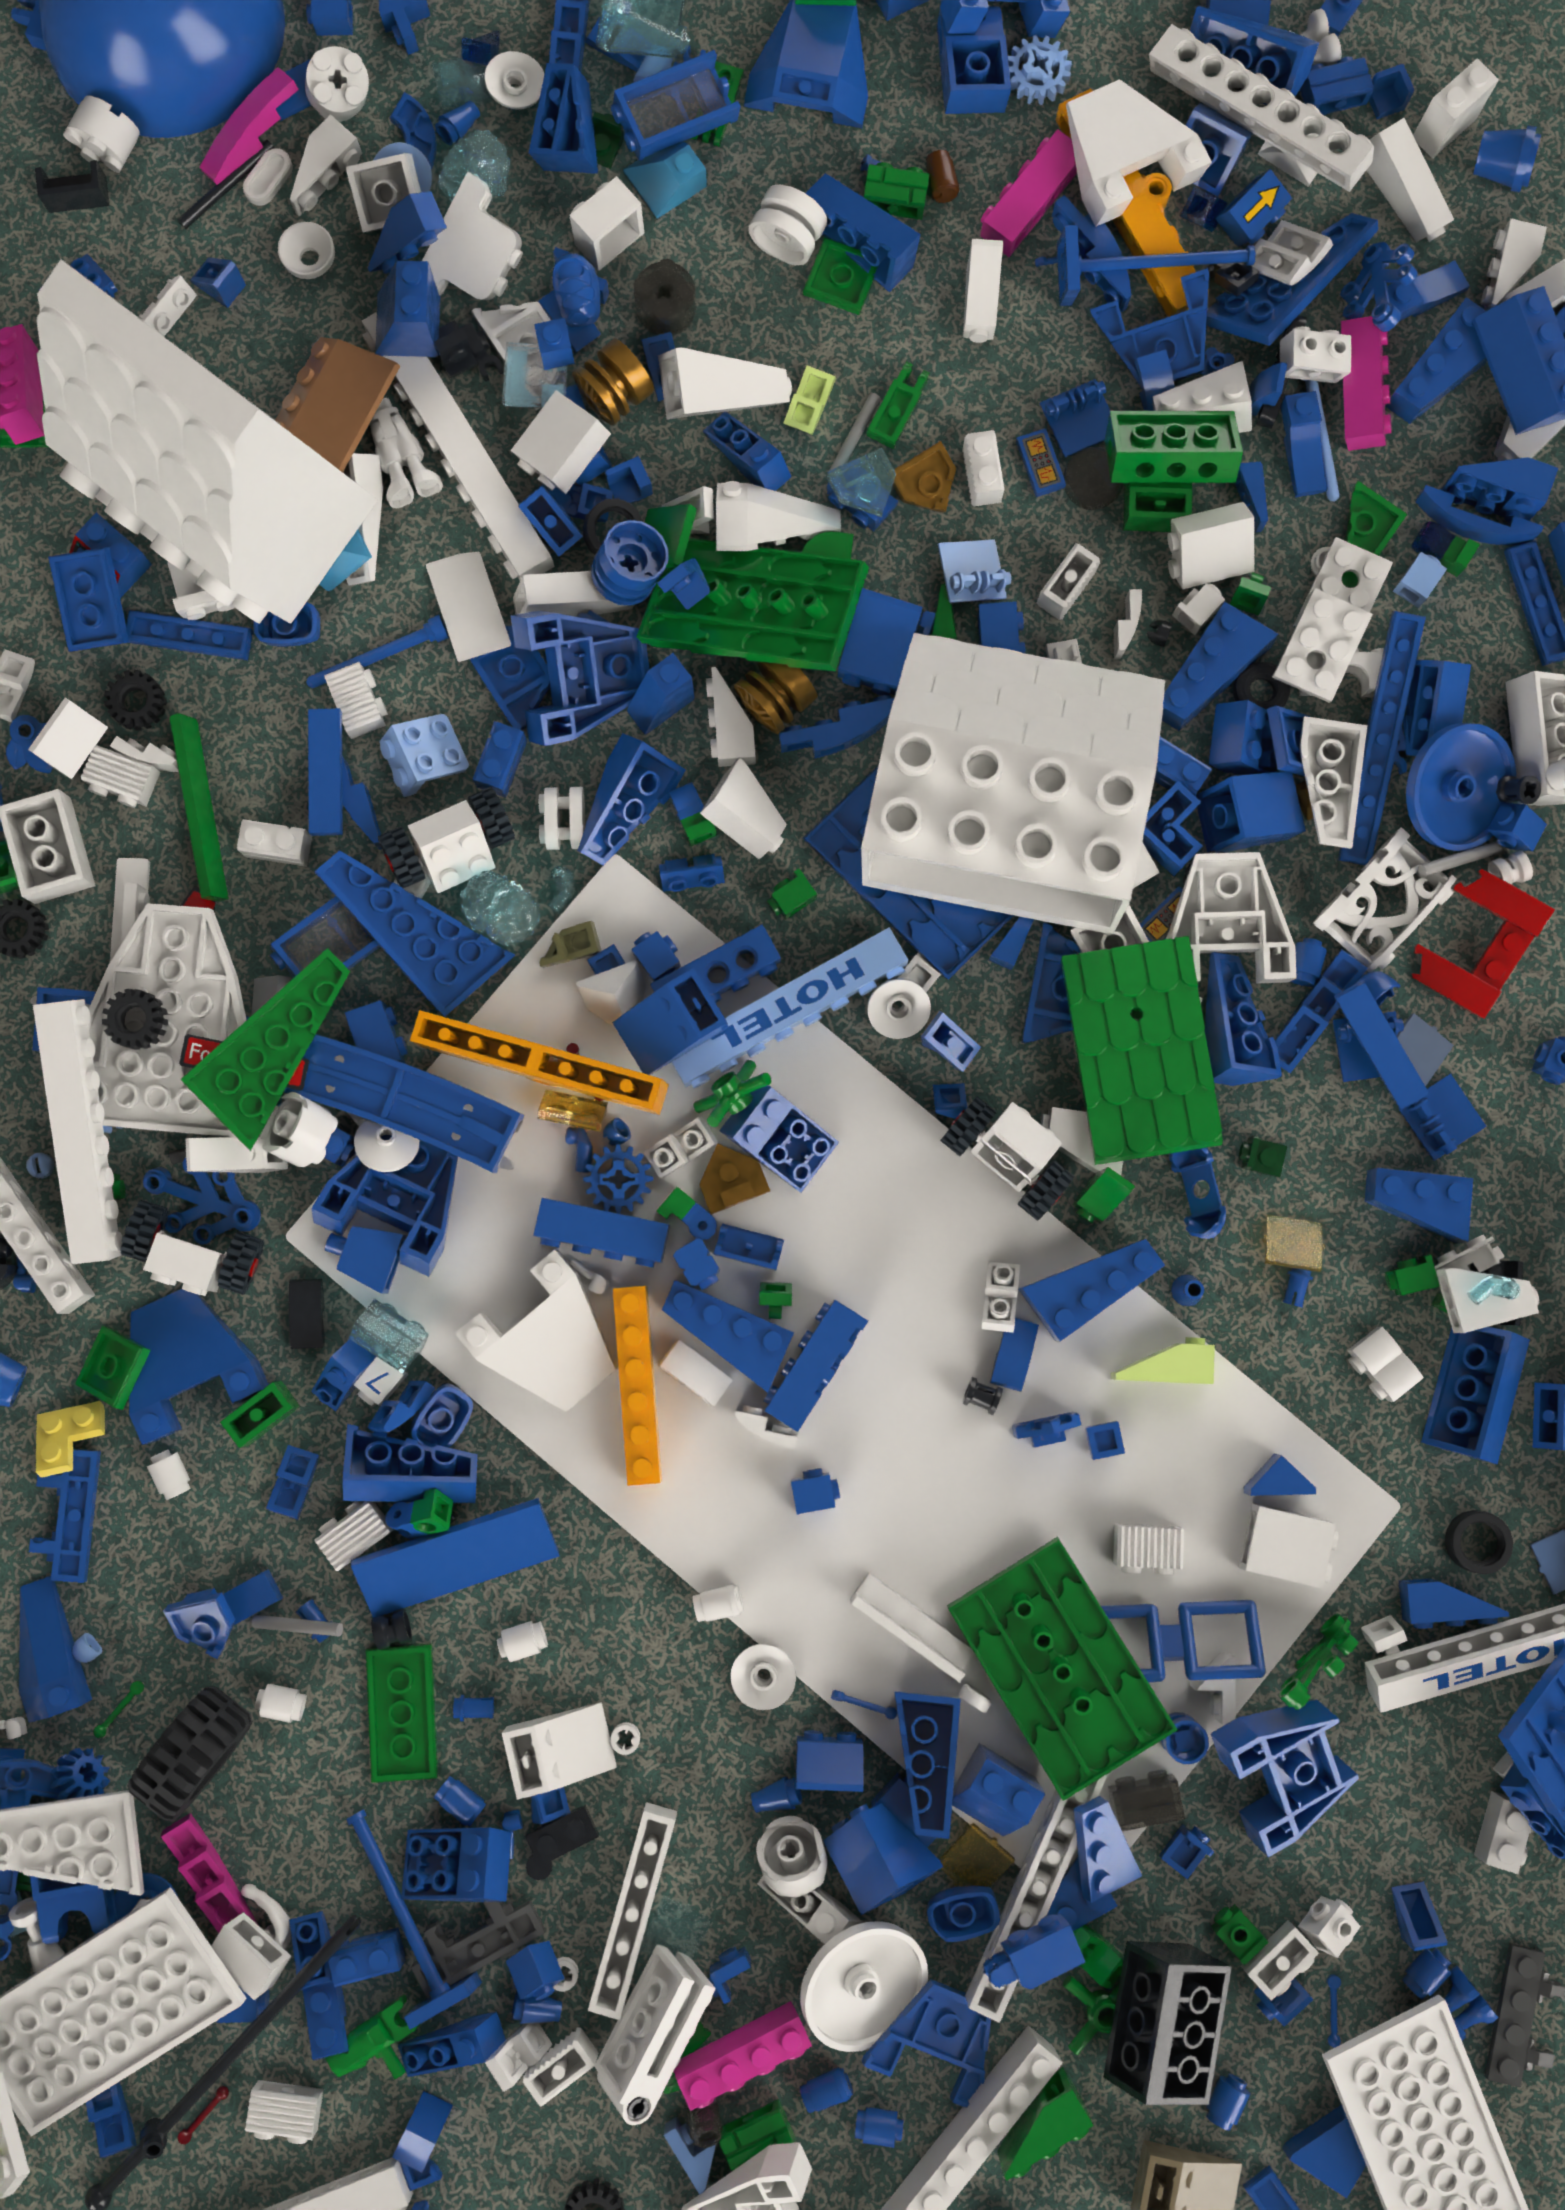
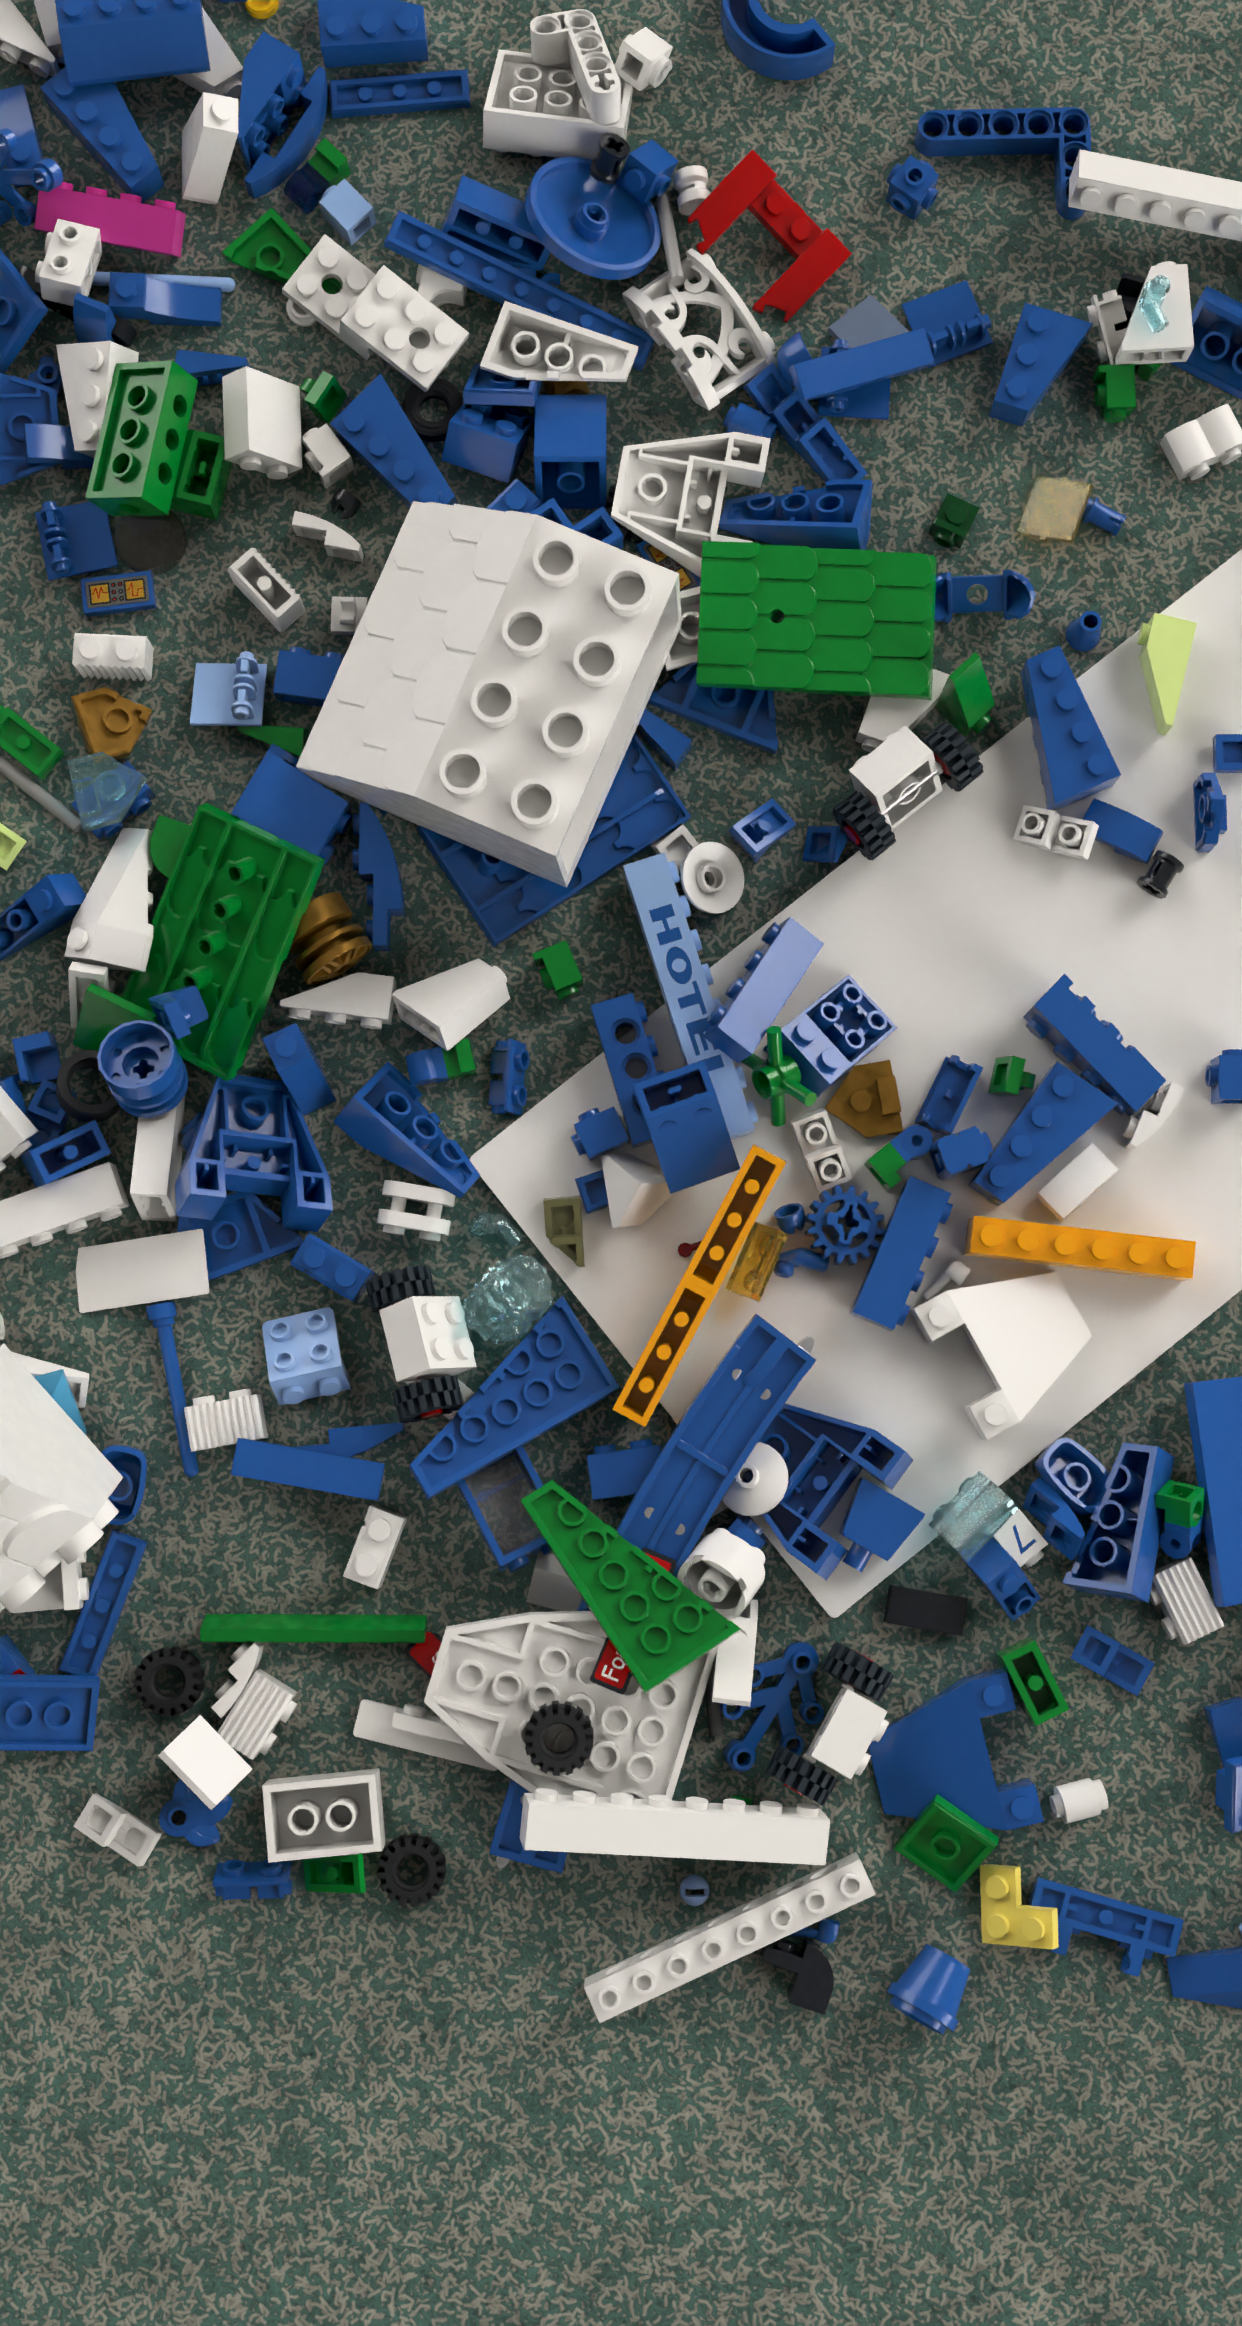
camera: 75 degrees left, 0 degrees up
(804, 1066) = (763, 989): none -> brick
(1445, 448) = (208, 147): none -> white slope

